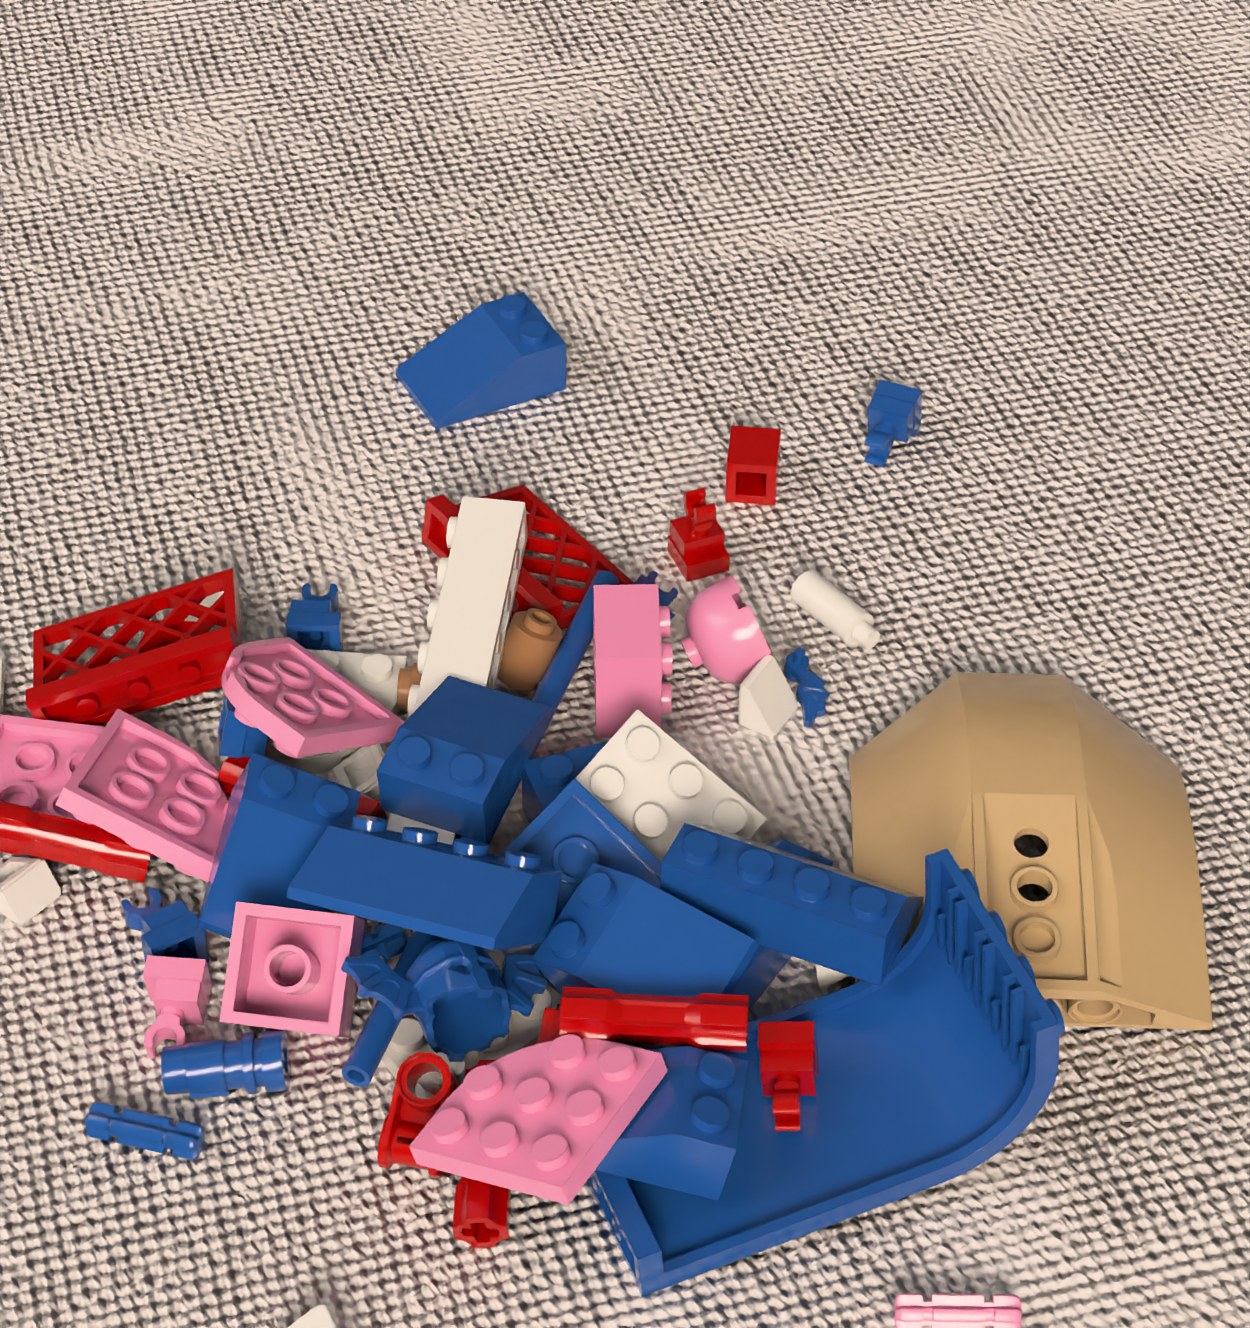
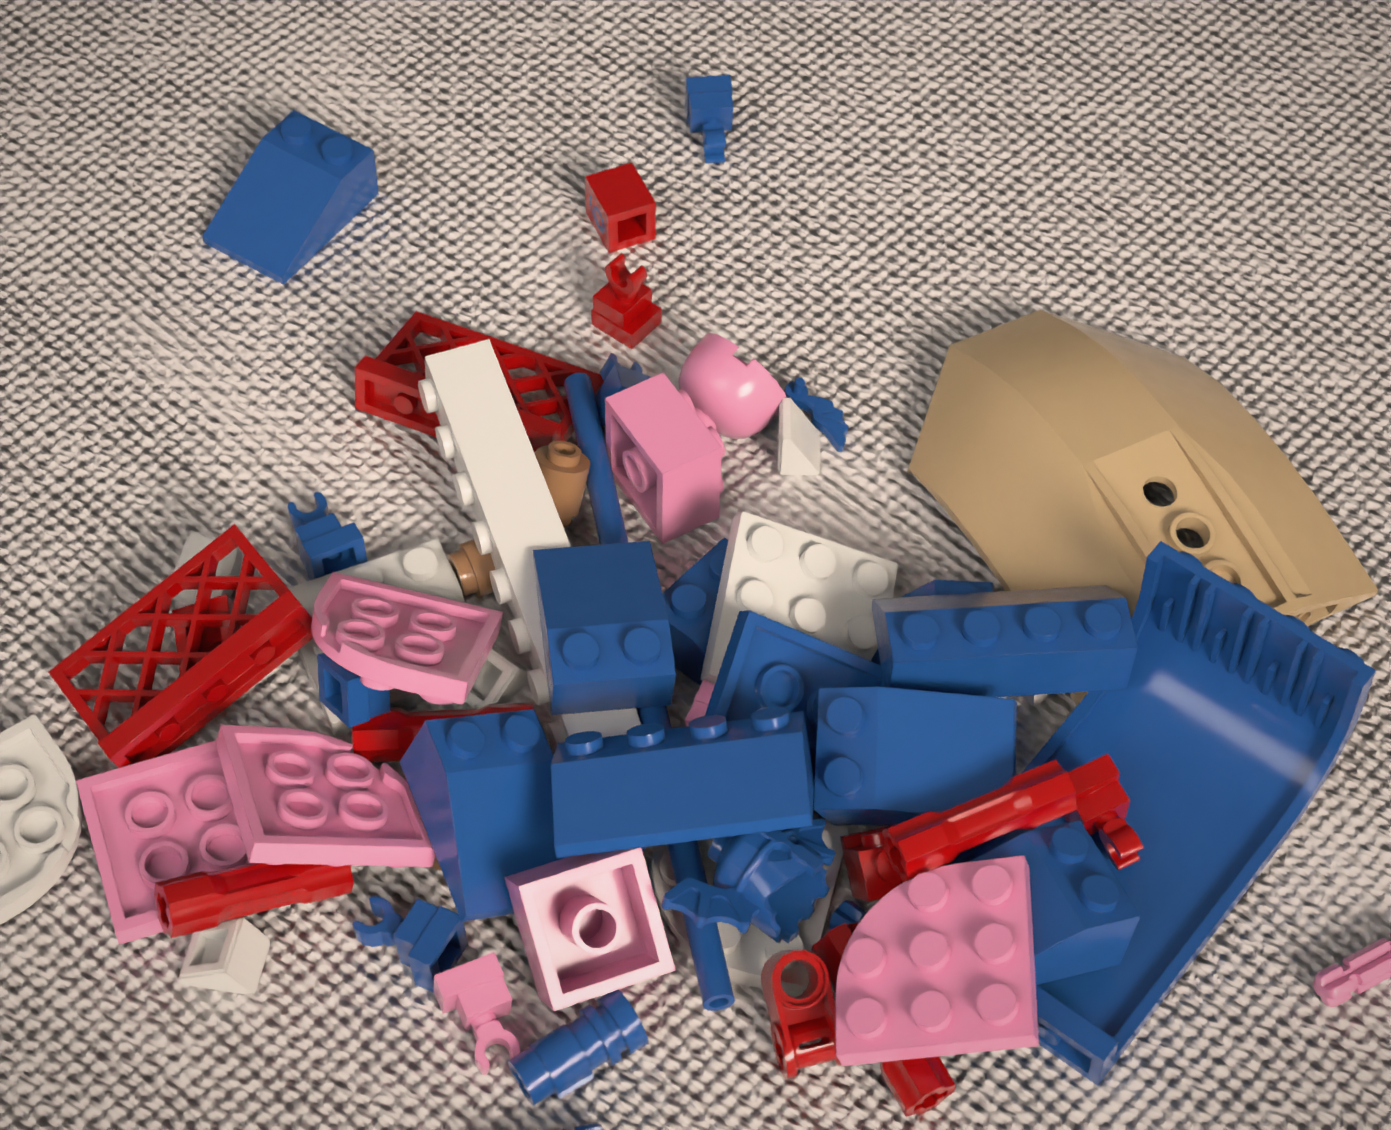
camera: 30 degrees left, 10 degrees up
(834, 609) = (793, 325): white cylinder -> none

